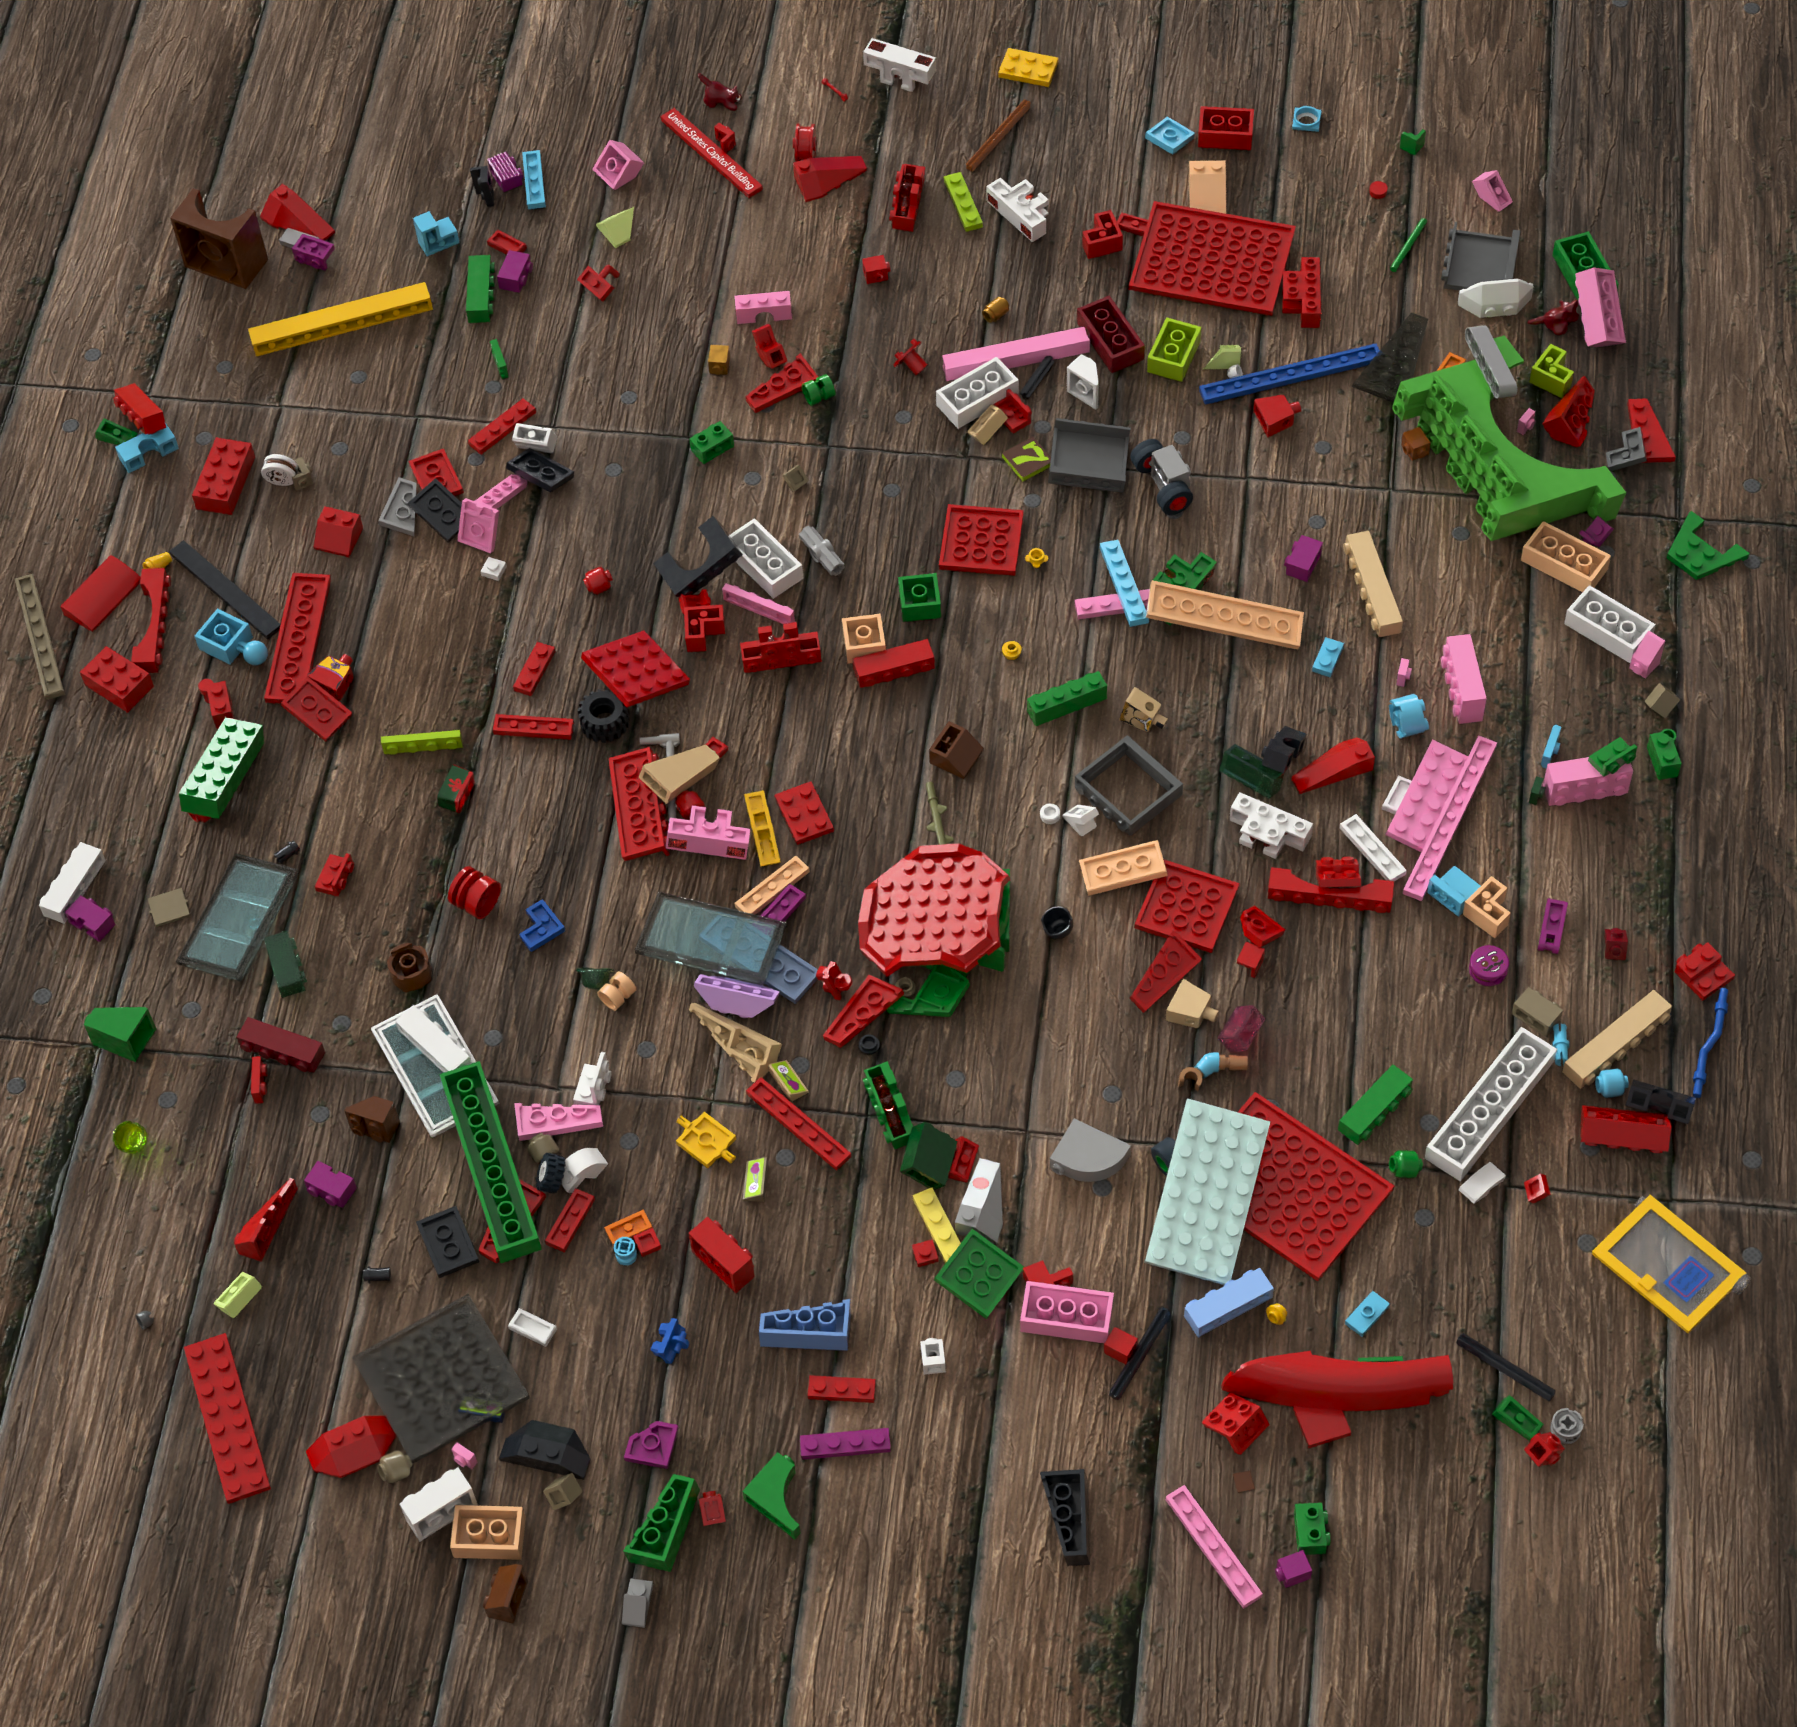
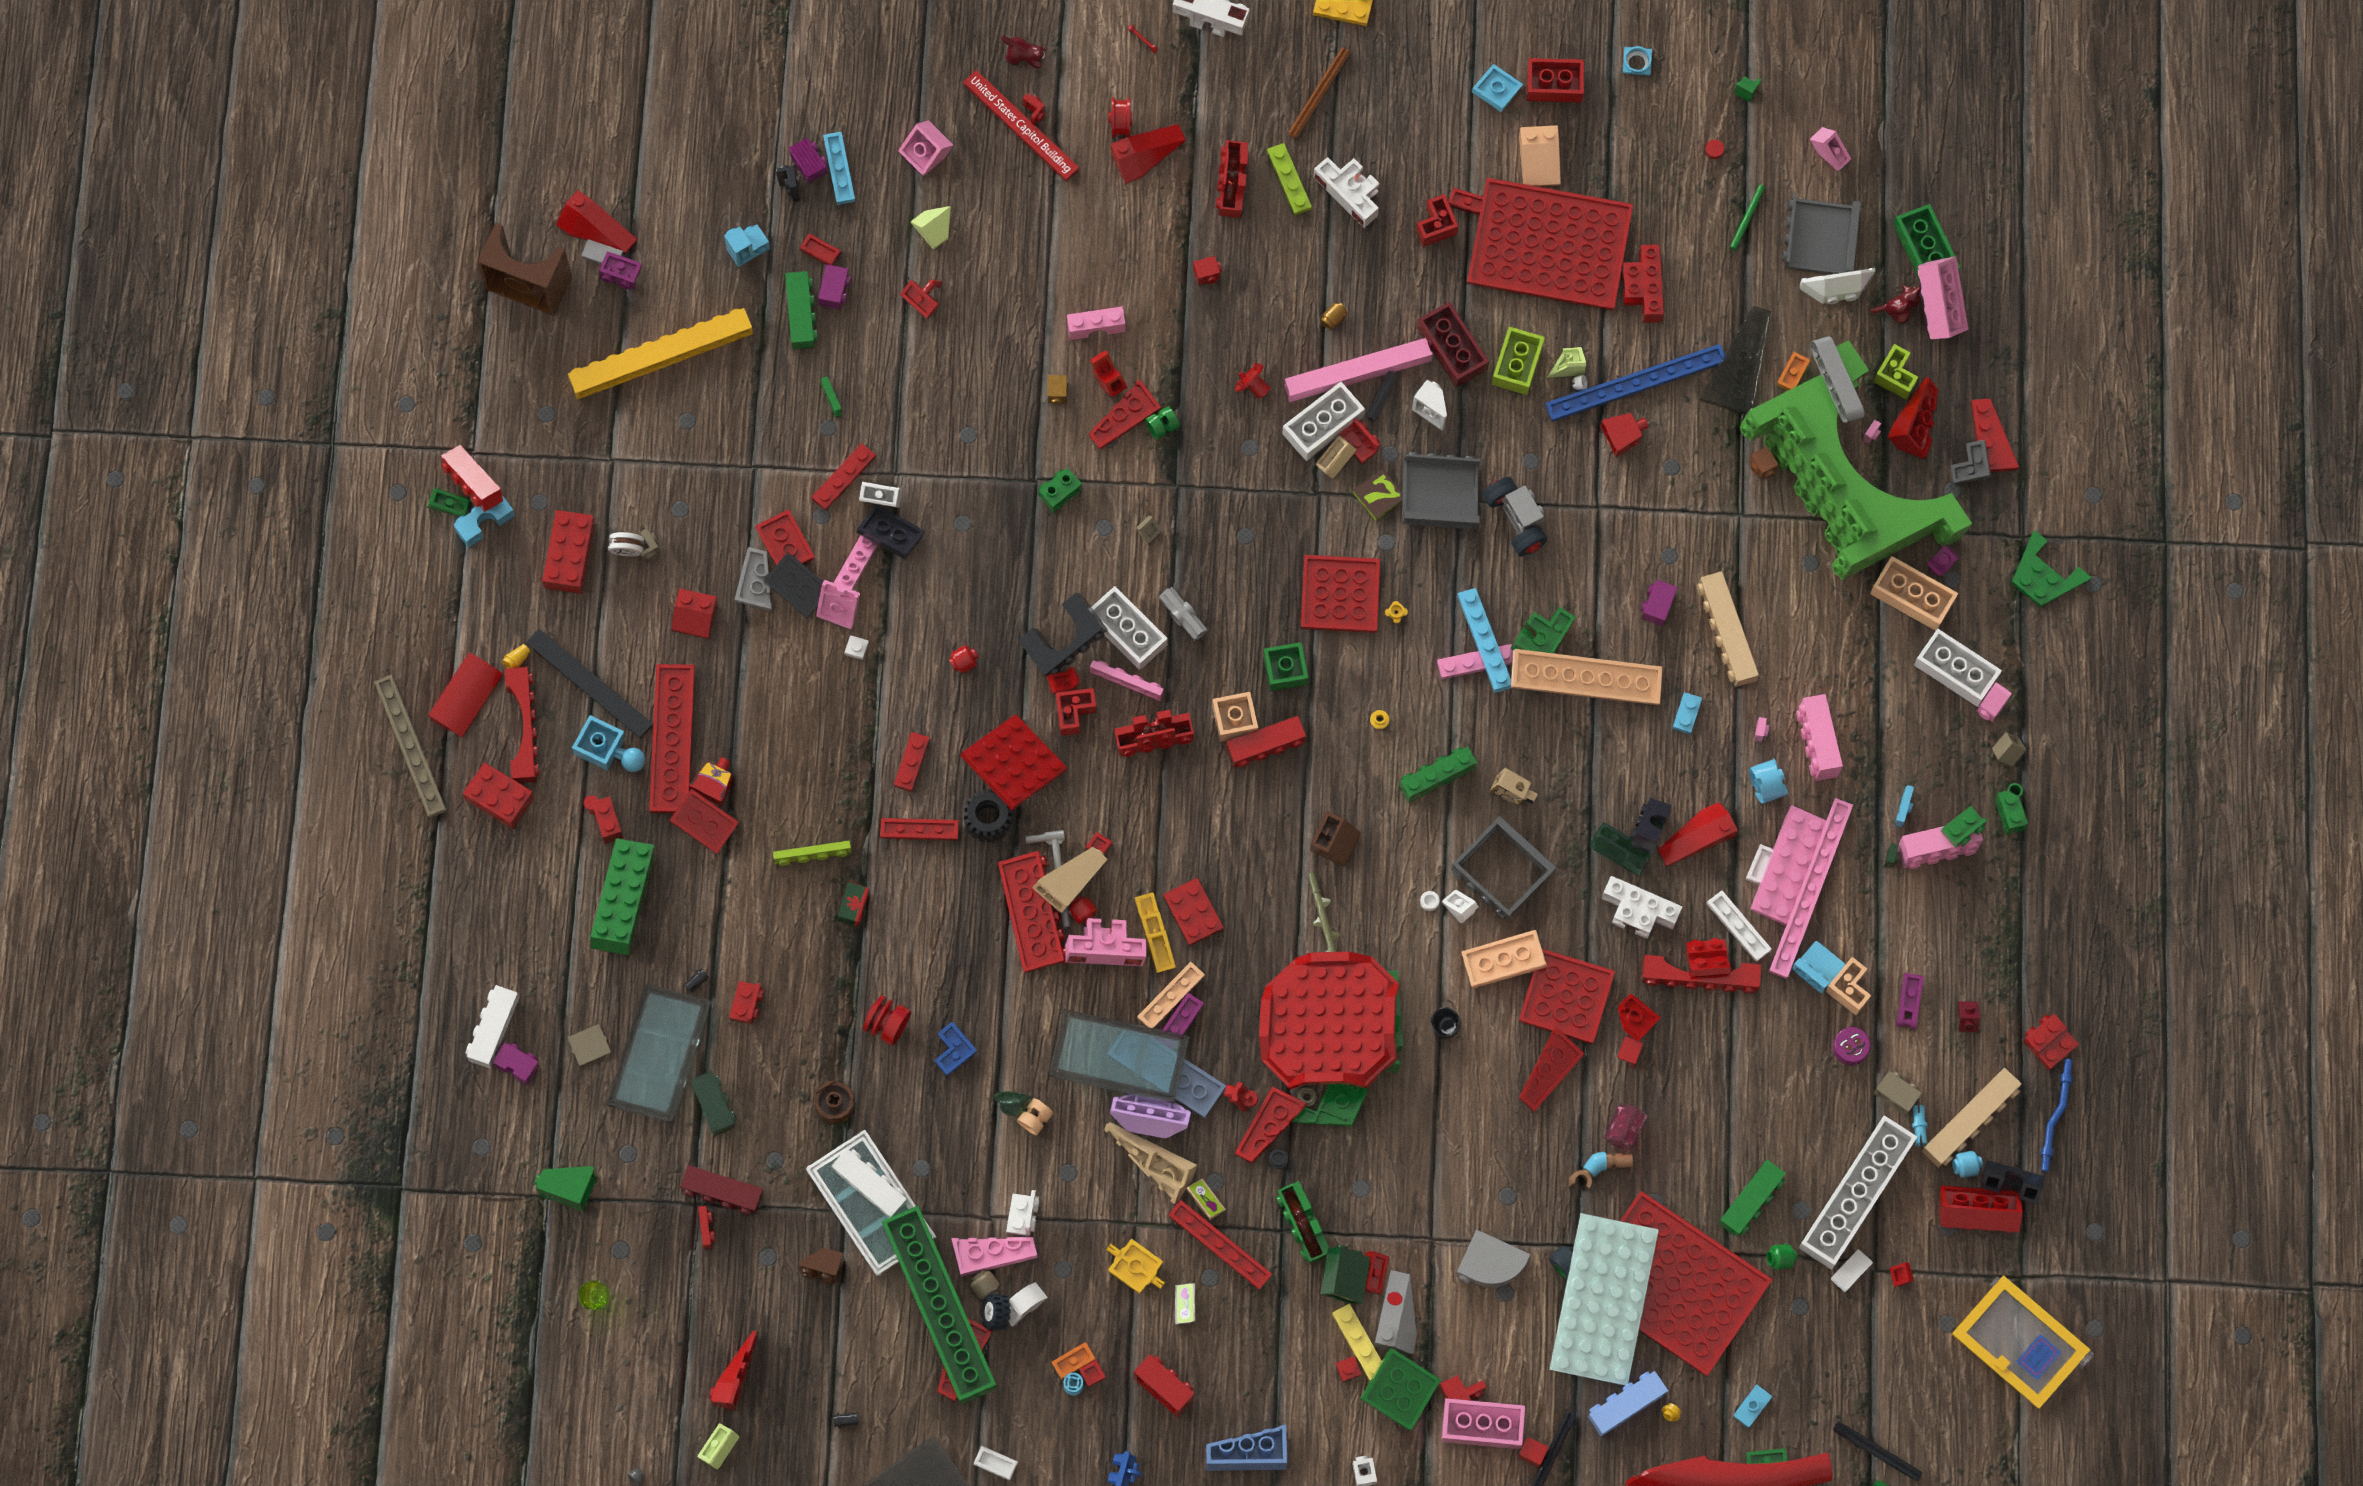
camera: 10 degrees left, 15 degrees up
(333, 1187) = (788, 1333): magenta brick -> none
(447, 1242) = (907, 1383): black plate -> none
(569, 1220) = (1018, 1355): red plate -> none
(1190, 1006) = (1576, 1104): tan torso -> none

